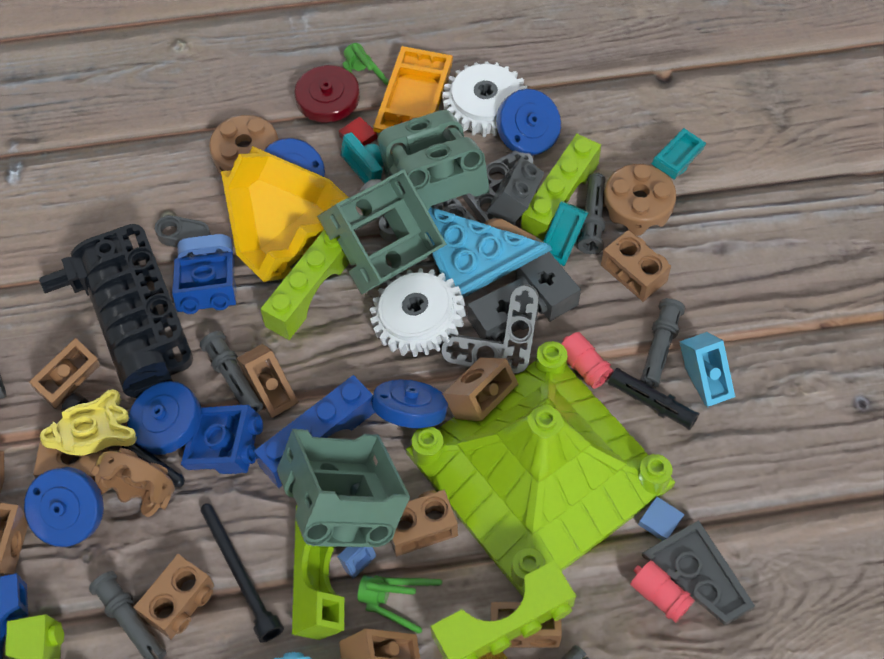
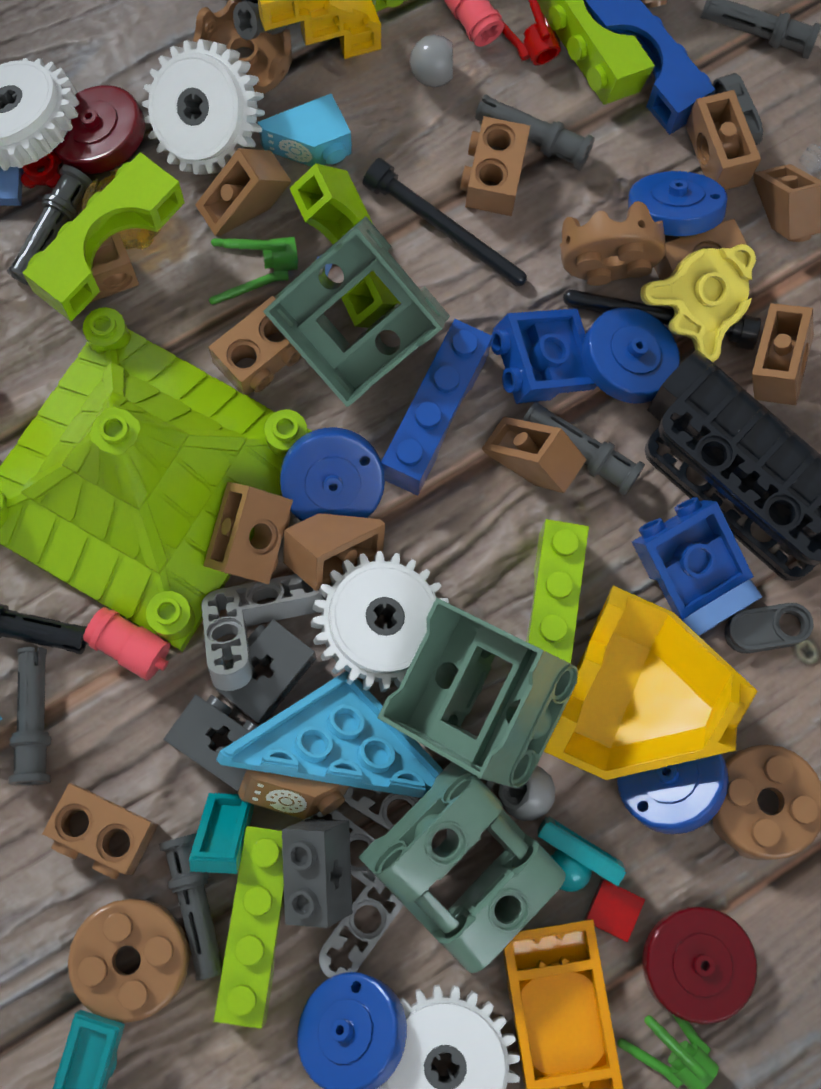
camera: 150 degrees right, 15 degrees up
(431, 365) = (326, 541): none -> medium nougat slope

